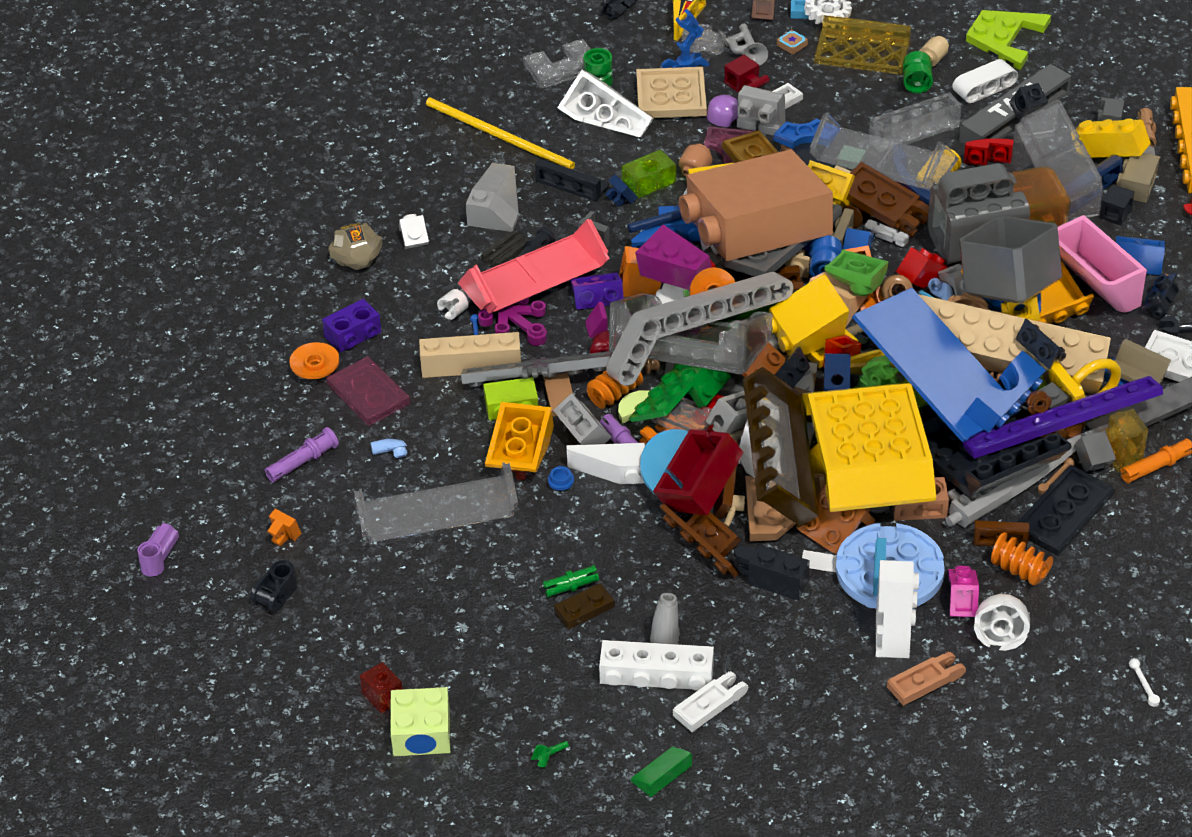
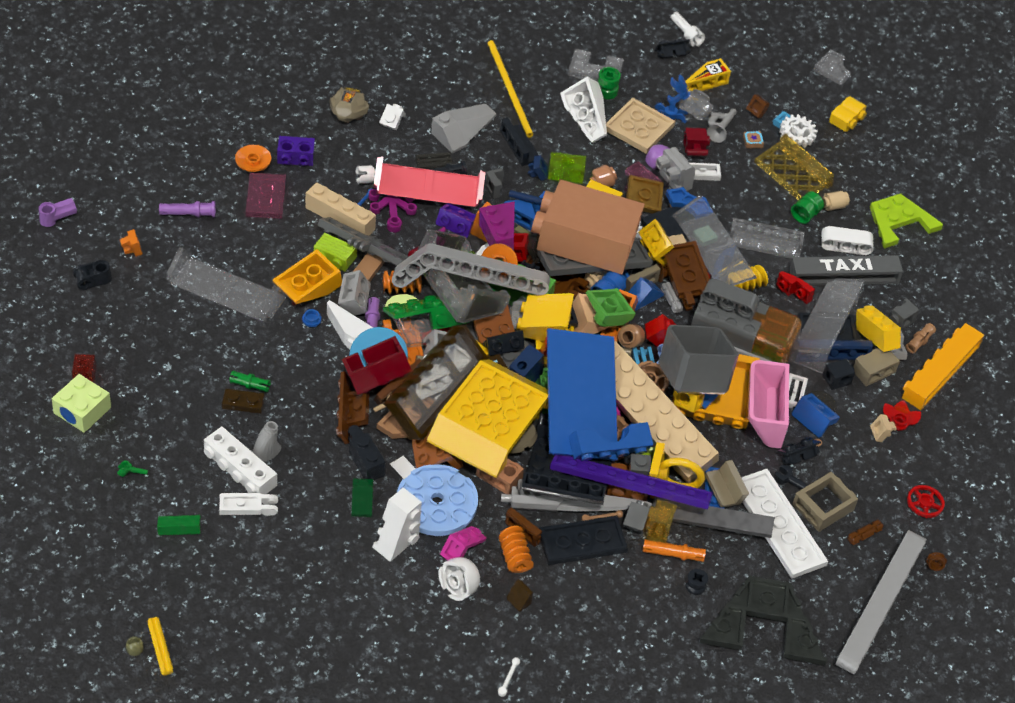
camera: 30 degrees right, 5 degrees up
(387, 445) = (241, 234): light blue arm -> none
(815, 614) = (362, 498): none -> dark green slope
(880, 554) = (427, 490): dark azure tile -> none
(925, 678) = (382, 579): nougat hinge -> none
(1028, 100) = (847, 268): black brick -> none
(1032, 400) = (627, 458): reddish brown plate -> none
(1039, 344) = (661, 418): black hinge -> none
(1071, 599) = (520, 595): none -> dark brown slope

